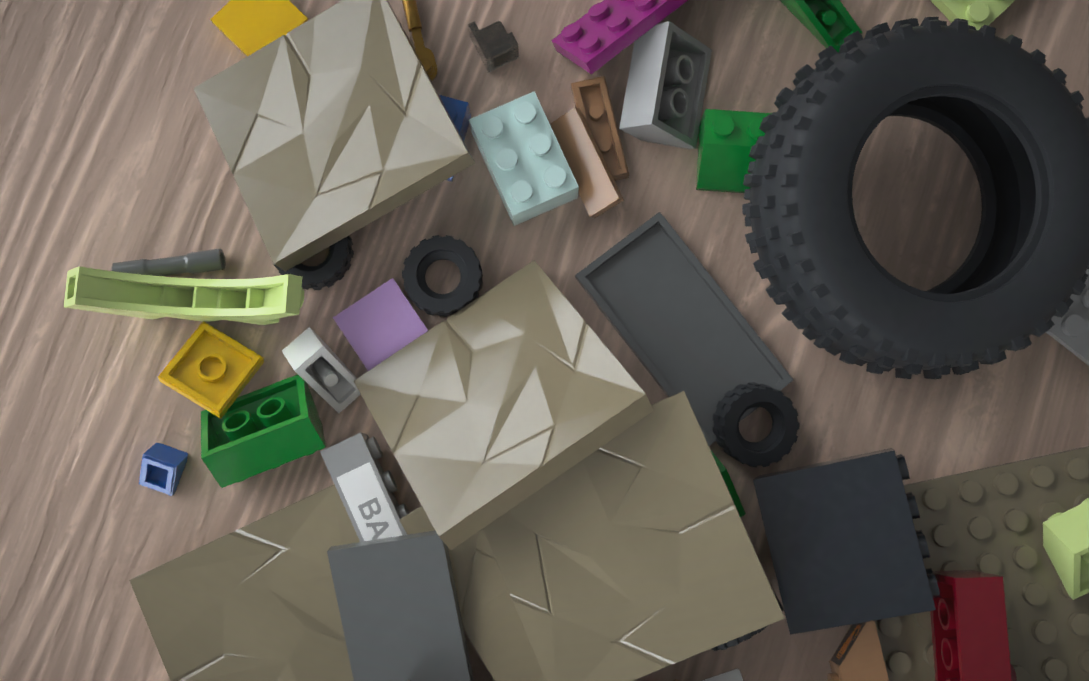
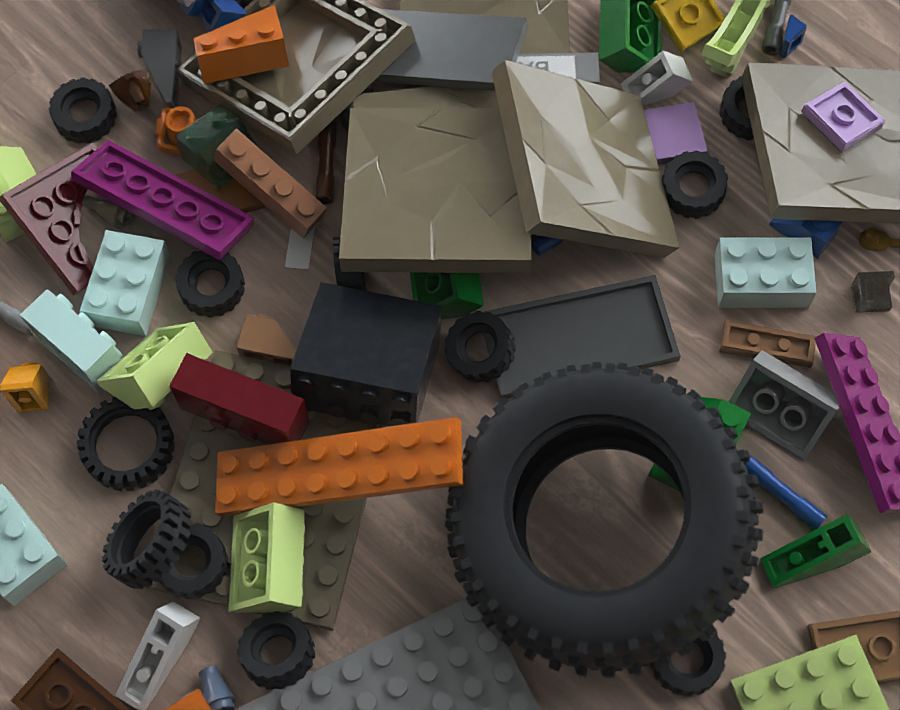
camera: 115 degrees right, 15 degrees down
(192, 239) = (793, 36): none -> blue slope
(303, 131) = (843, 116): none -> lavender tile
(587, 163) = (744, 316): medium nougat tile -> none
(754, 76) = (800, 506): none -> blue piece
(1001, 497) = (341, 467): none -> orange plate

